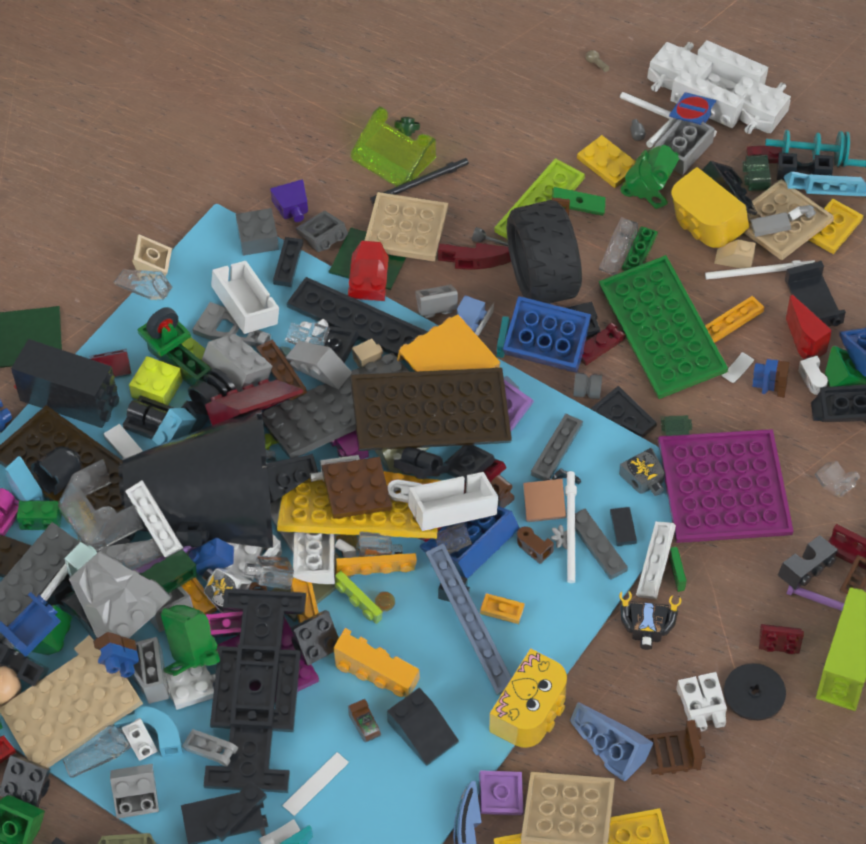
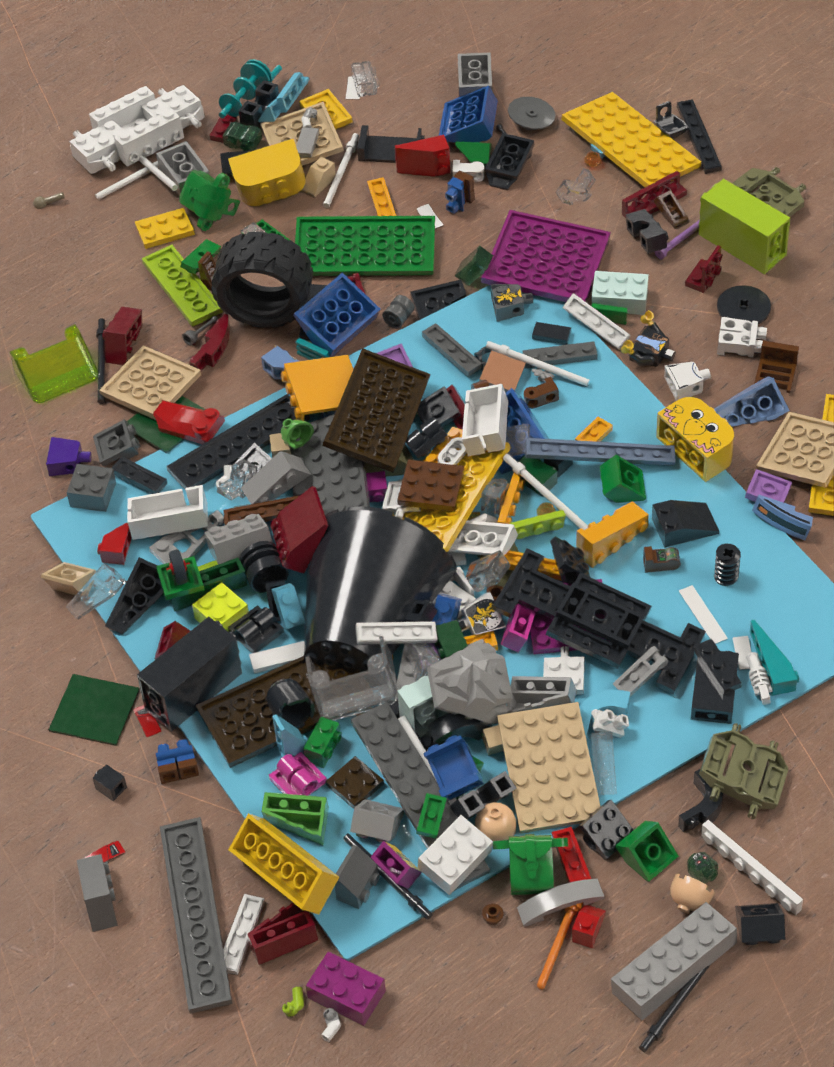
camera: 65 degrees left, 5 degrees down
(117, 653) = (529, 698): blue hips -> none
(134, 791) = (655, 743): light grey slope -> none
(138, 312) = (137, 596): none -> black wedge
(188, 638) = (531, 648): green piece -> none
(198, 276) = (115, 545): none -> red slope
(371, 353) = (296, 429): none -> bright green helmet
(372, 780) = (727, 564): none -> black piece
(407, 125) = (35, 345): dark green plate -> none
(413, 556) = (520, 469): none -> white bar
(423, 579) = (542, 472): none -> dark green brick
(437, 300) = (249, 381): light grey slope -> none
(450, 654) = (622, 480): none -> green slope
(453, 180) = (120, 334): none -> dark red wedge
(618, 669) = (685, 379): none -> white torso
(637, 130) = (145, 197): dark grey cylinder -> none
(693, 108) = (158, 145): piece -> none
(710, 568) = (621, 290): none -> light aqua brick

